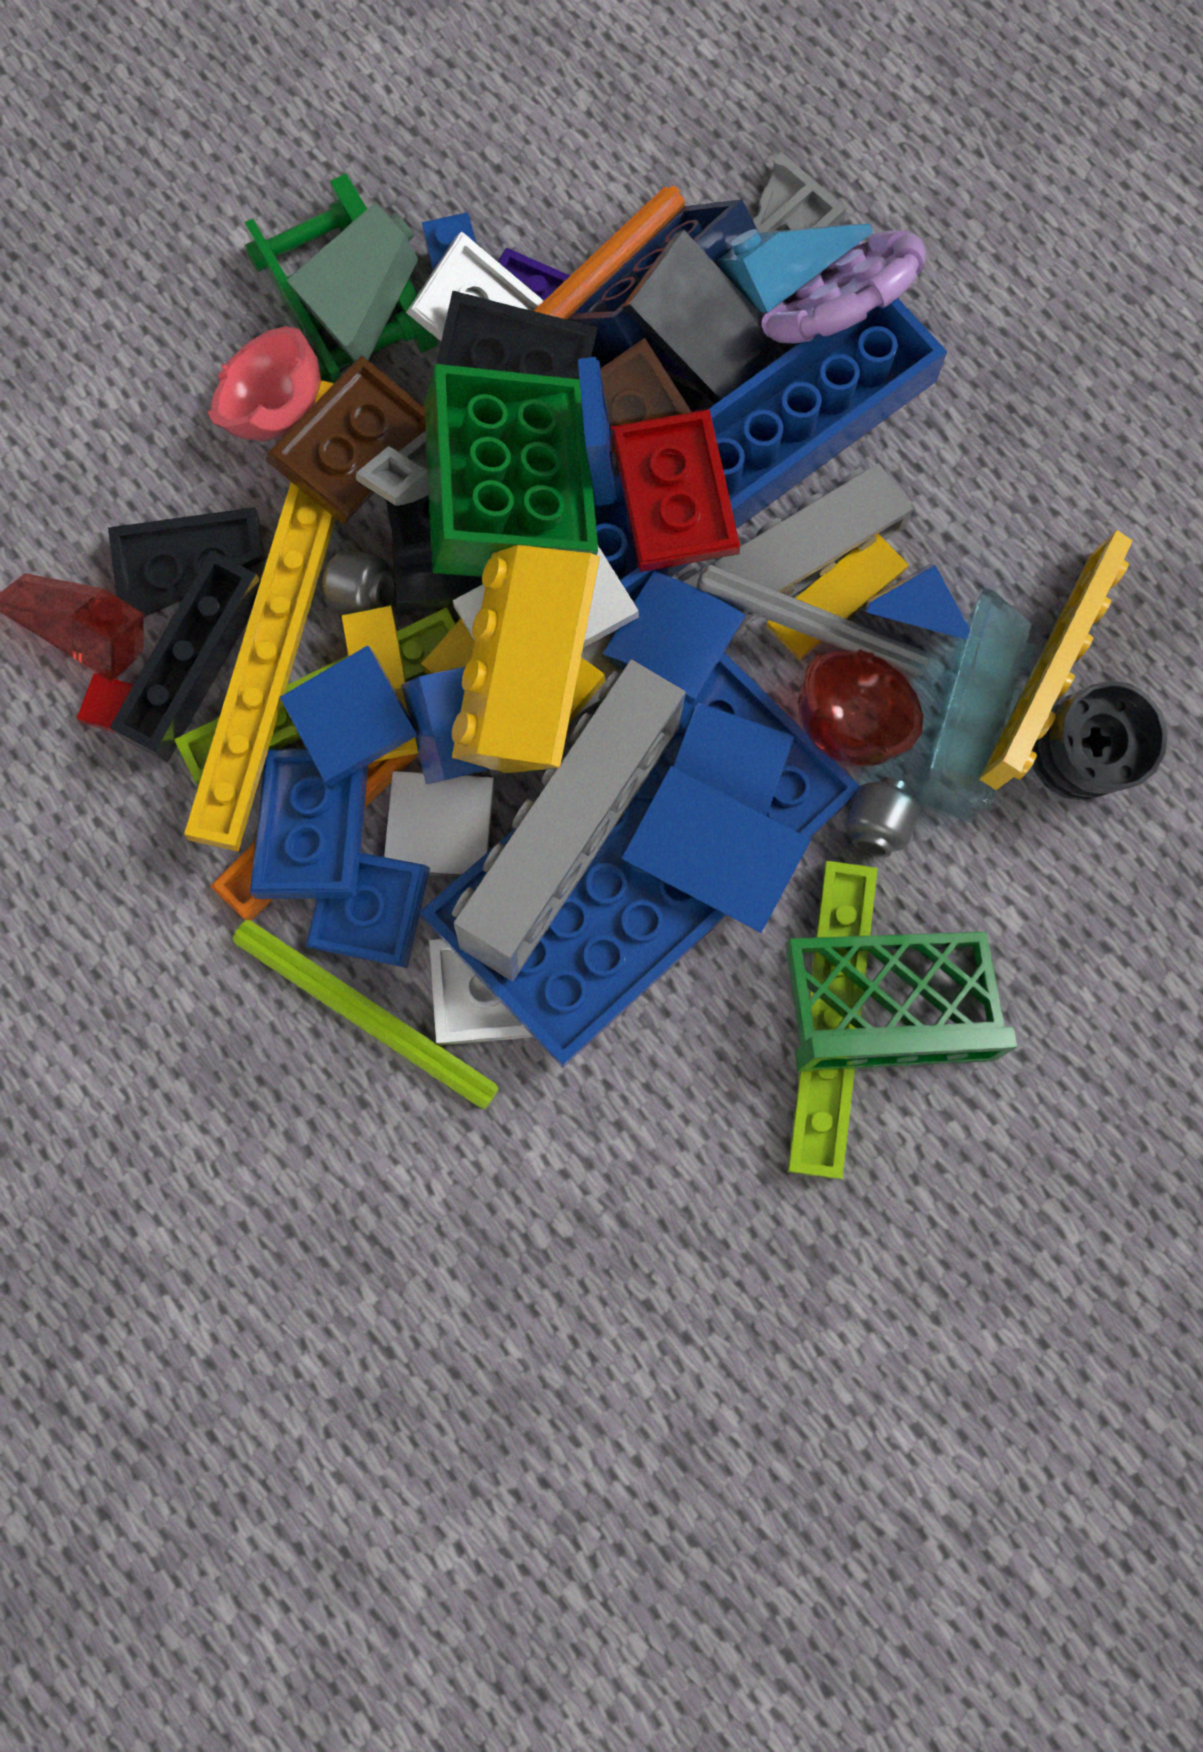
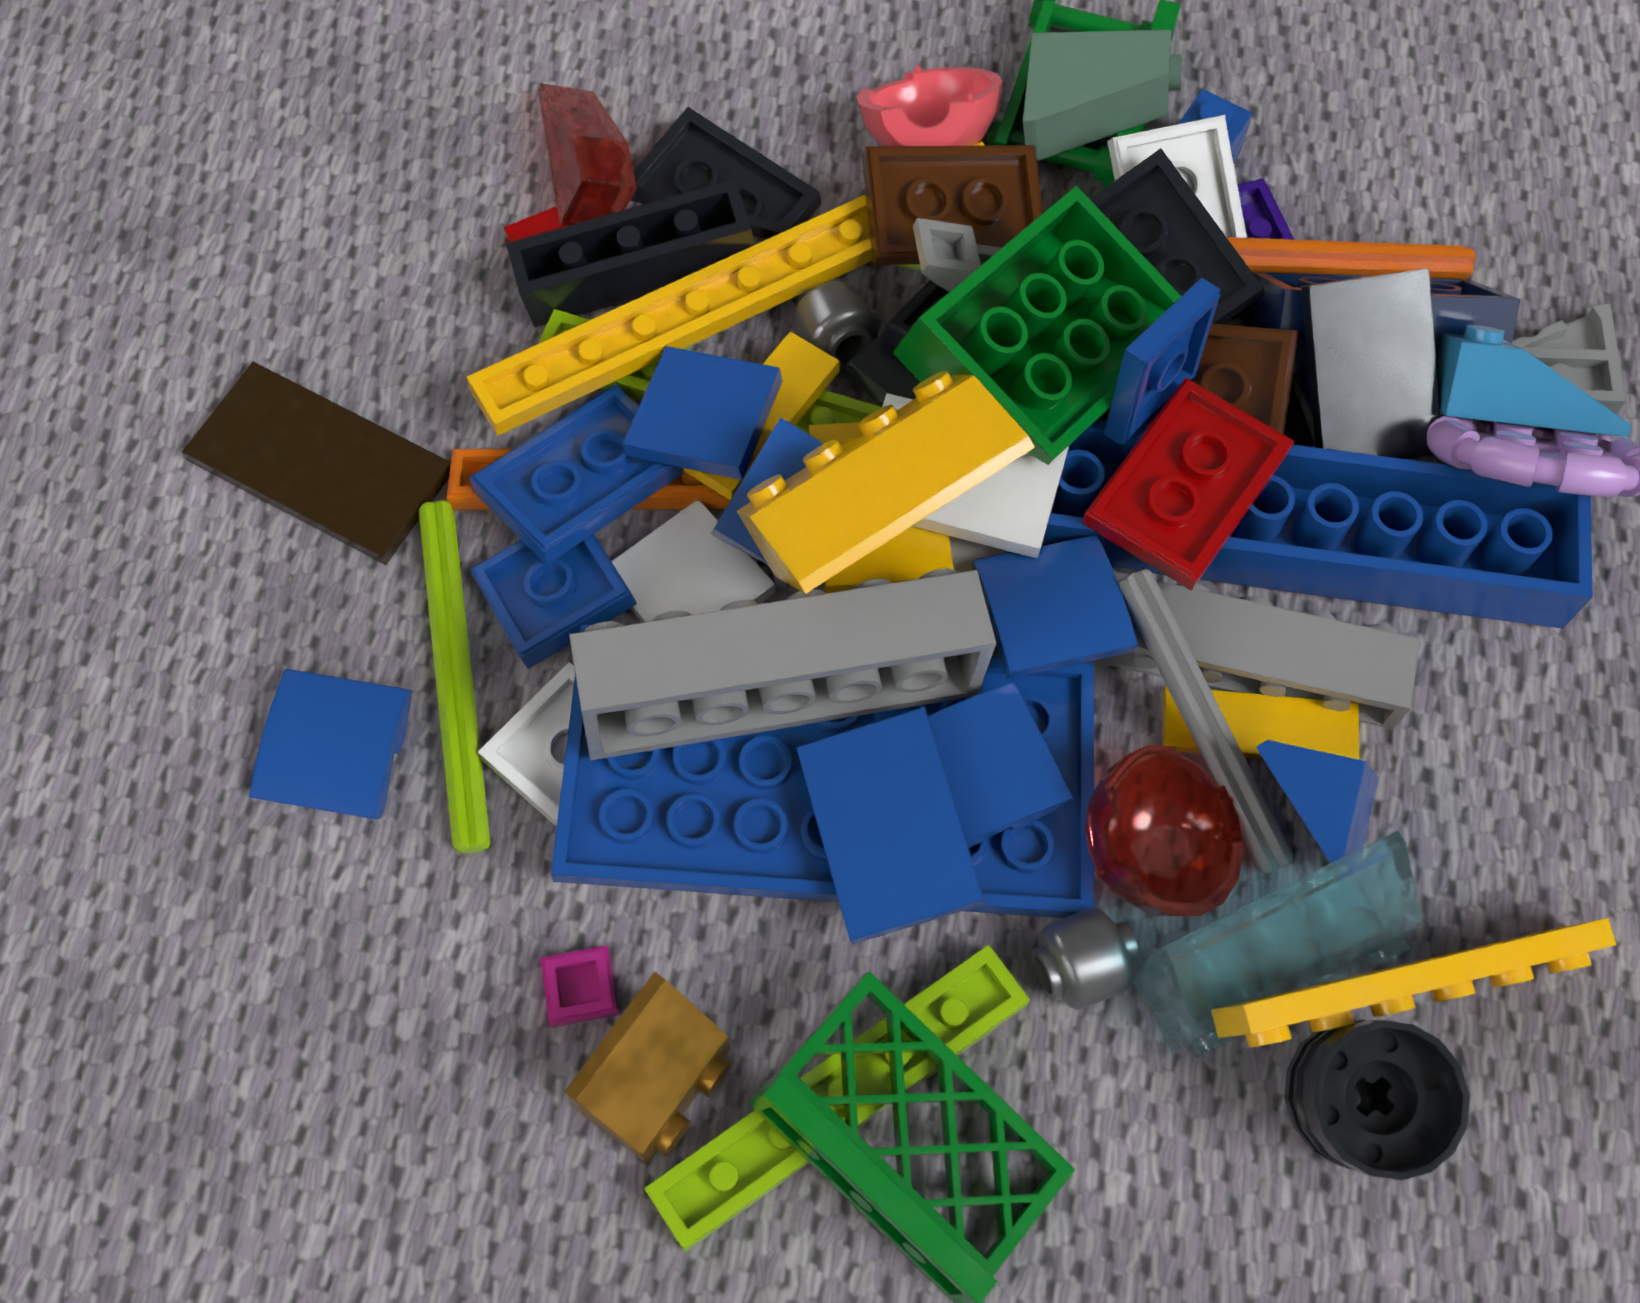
camera: 45 degrees right, 10 degrees down
(132, 976) = (318, 462): none -> dark brown tile
(343, 1125) = (331, 743): none -> blue slope
(634, 1107) = (579, 986): none -> dark pink tile
(731, 1108) = (651, 1070): none -> pearl gold slope

